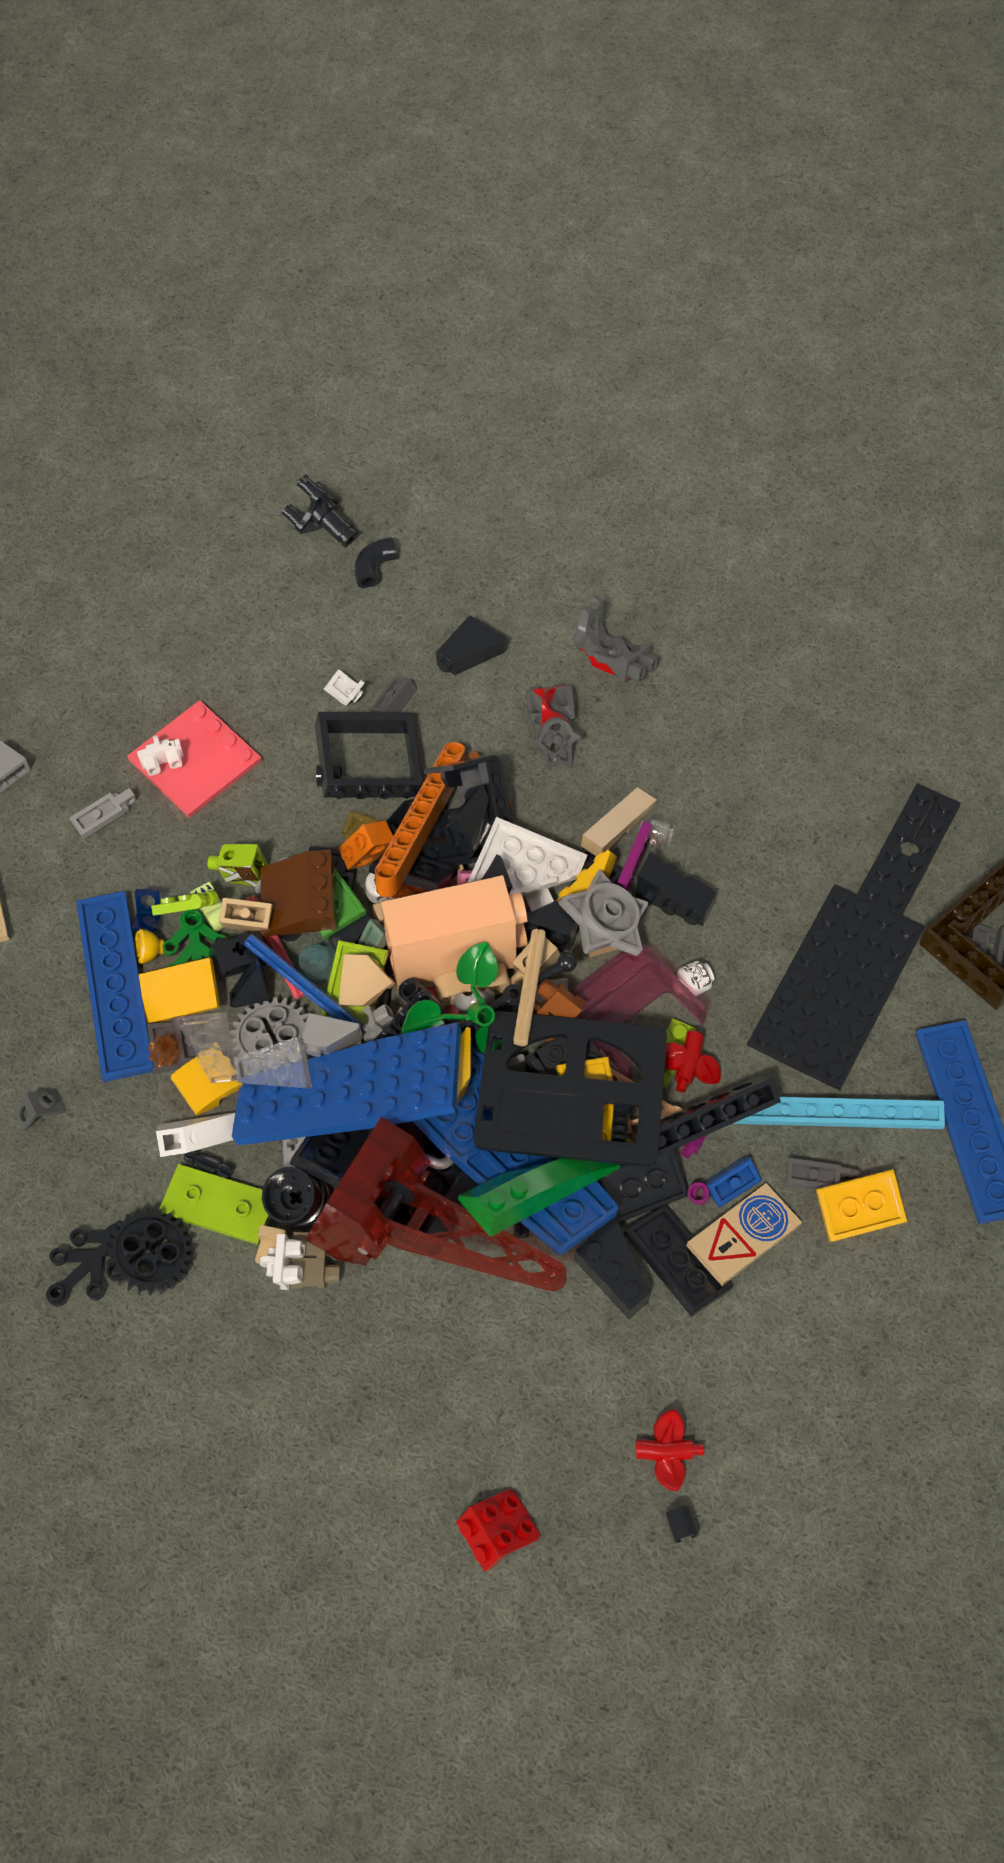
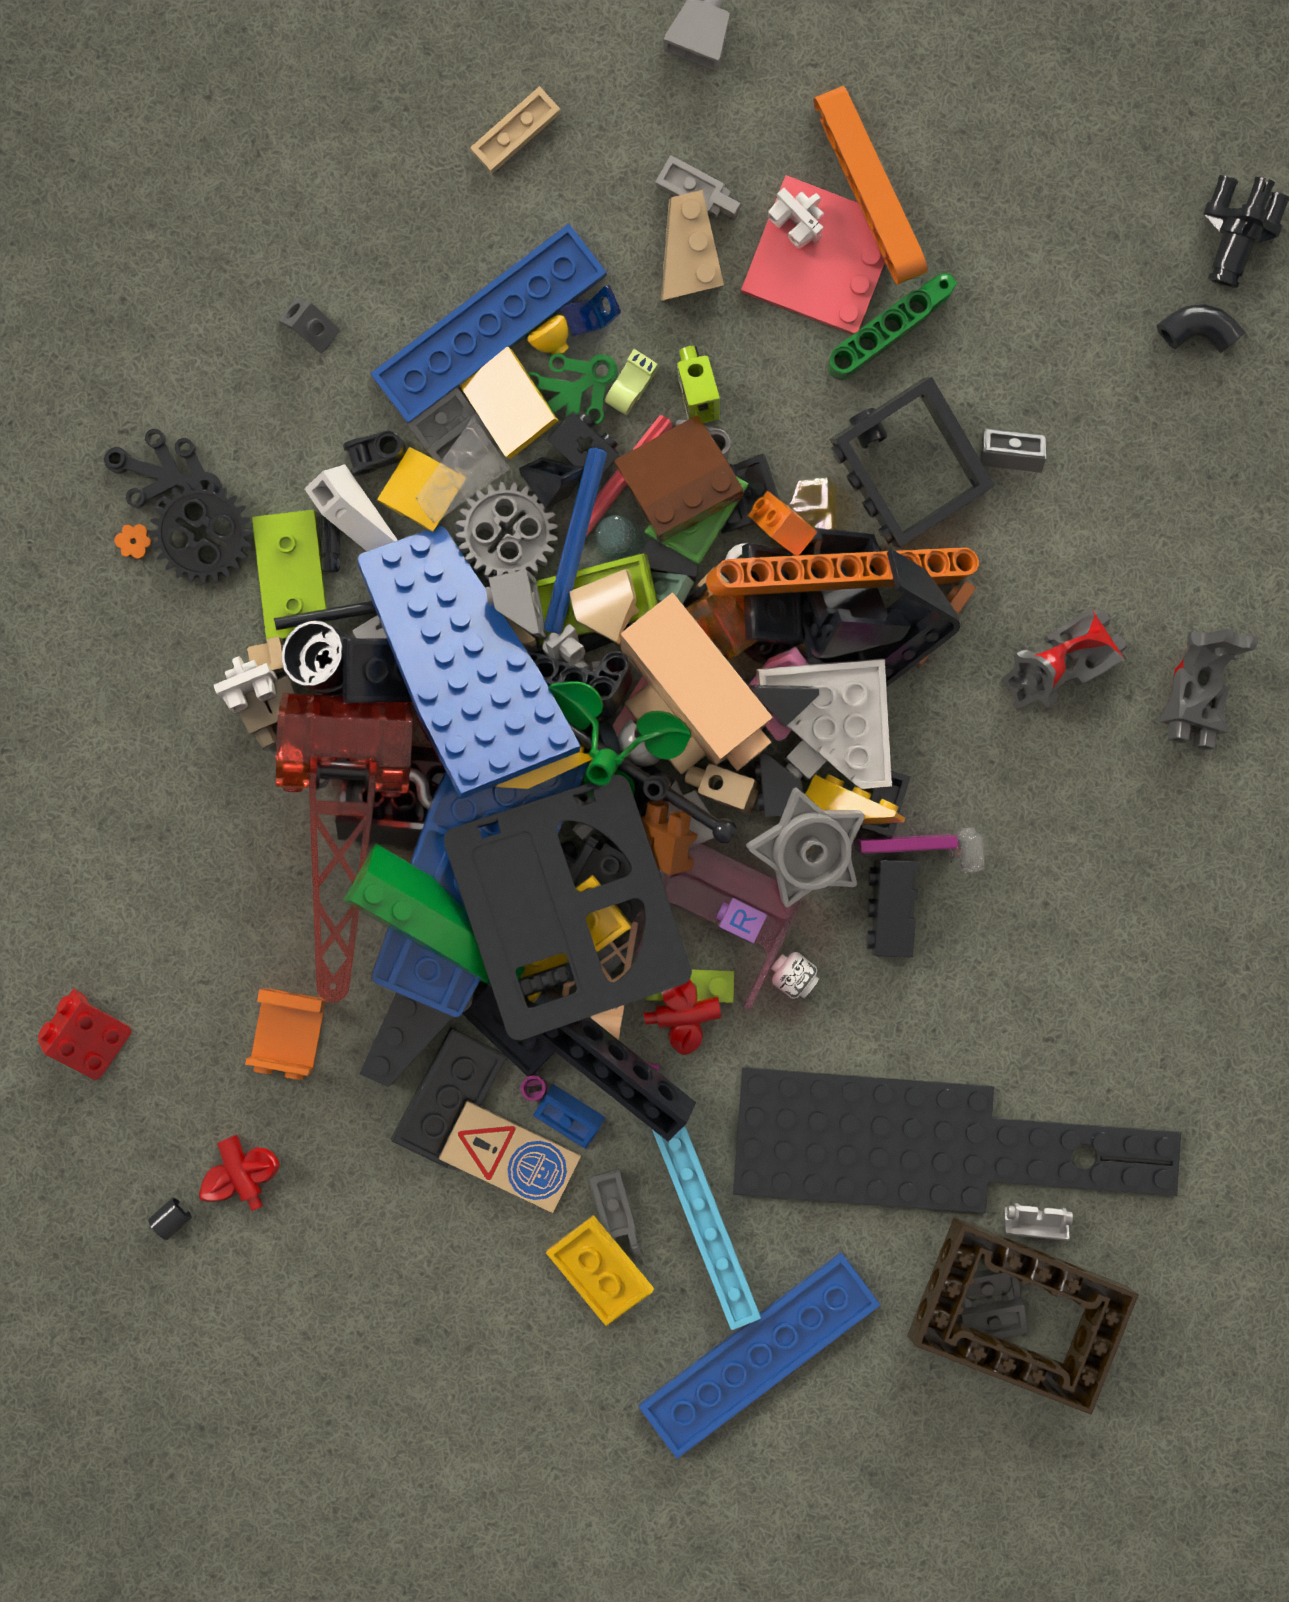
camera: 65 degrees right, 25 degrees up
(123, 1304) = (124, 541): none -> orange plant
(141, 828) = (690, 249): none -> tan wedge
(160, 1056) = (436, 429): clear orange gear -> none
(160, 1105) = (372, 452): none -> black piece
(166, 704) = (870, 185): none -> orange beam
(185, 902) = (612, 352): lime plate -> none
(245, 915) = (626, 430): tan slope -> none
(267, 1171) = (325, 615): none -> black bar
(268, 742) = (930, 295): none -> green piece
(275, 1065) = (456, 562): clear wing -> none
(344, 688) = (997, 385): white bracket -> none
(470, 646) = (1127, 507): black slope -> none
(529, 987) = (668, 804): tan axle -> none
(570, 1362) = (286, 1033): none -> orange panel
(617, 822) = (960, 800): tan slope -> none
(637, 992) = (740, 920): none -> medium lavender brick
(941, 900) = (1031, 1222): none -> light grey hinge

